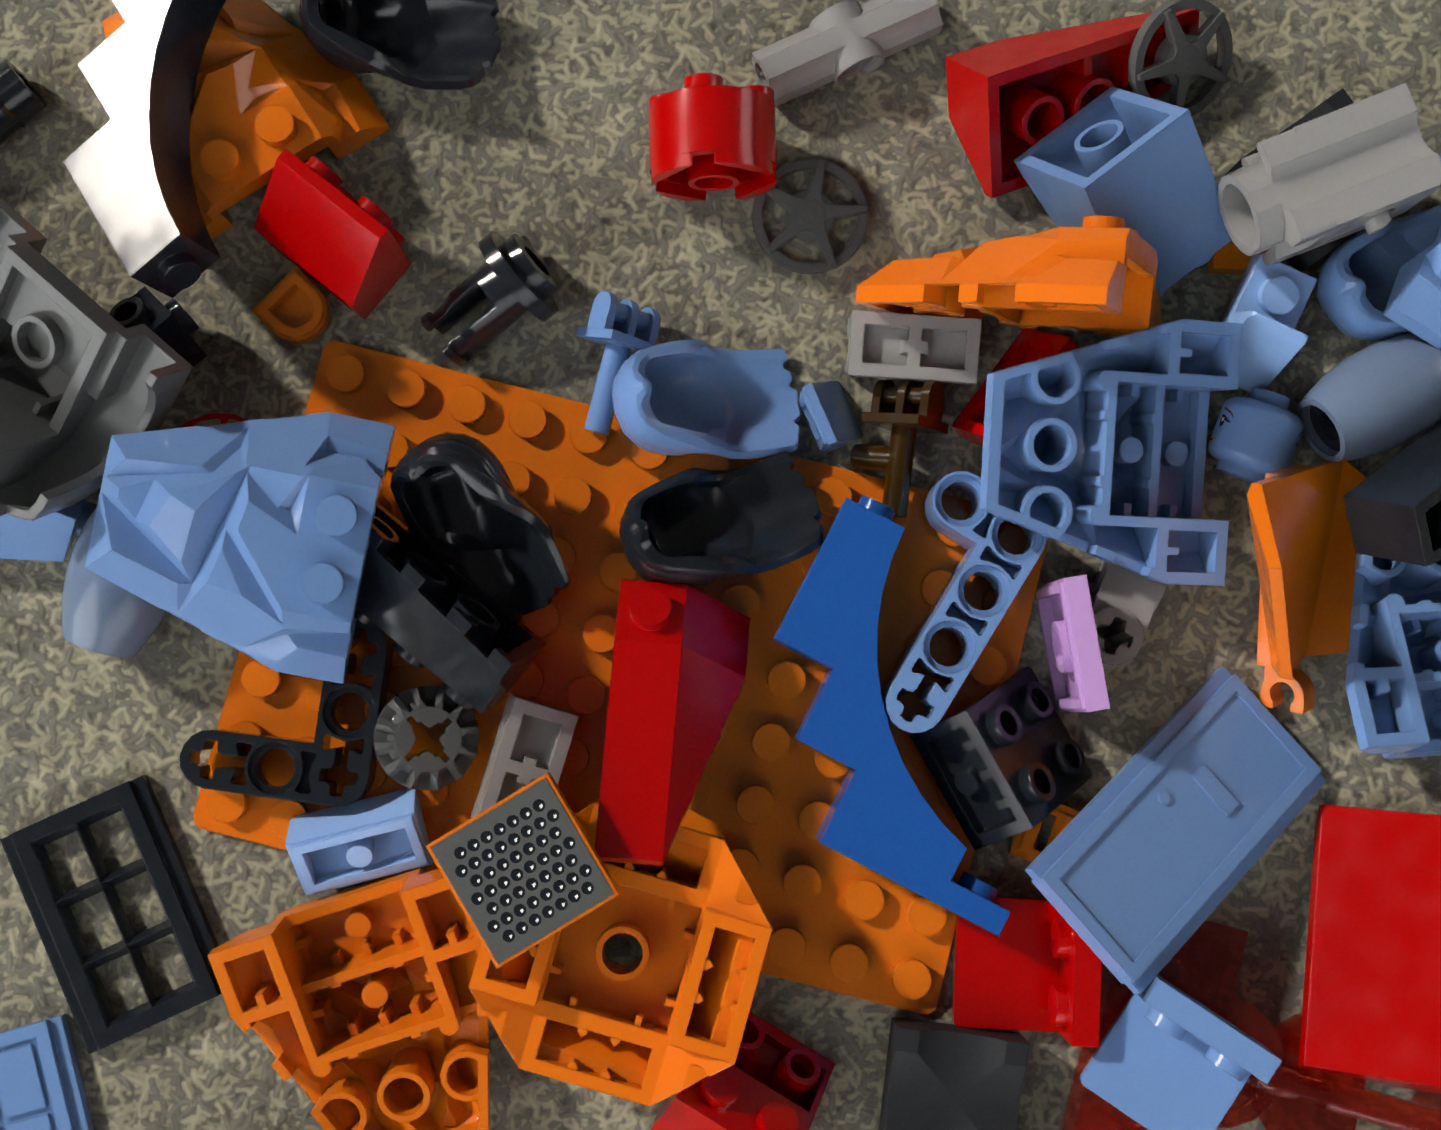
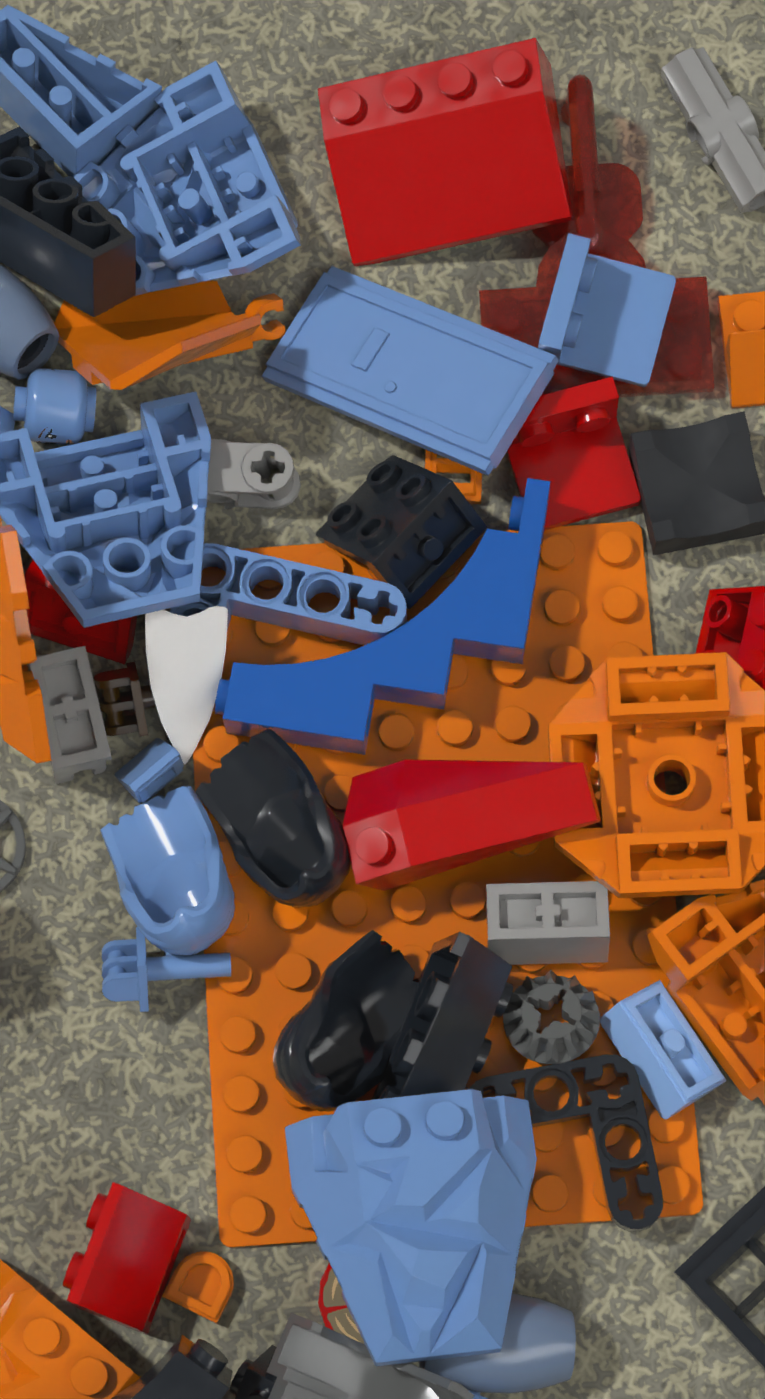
camera: 100 degrees left, 10 degrees down
(514, 282) = (117, 1079): black piece -> none
(523, 870) = (626, 868): tile -> none
(915, 477) = (185, 671): none -> white sticker
(1072, 645) = (287, 499): lavender tile -> none

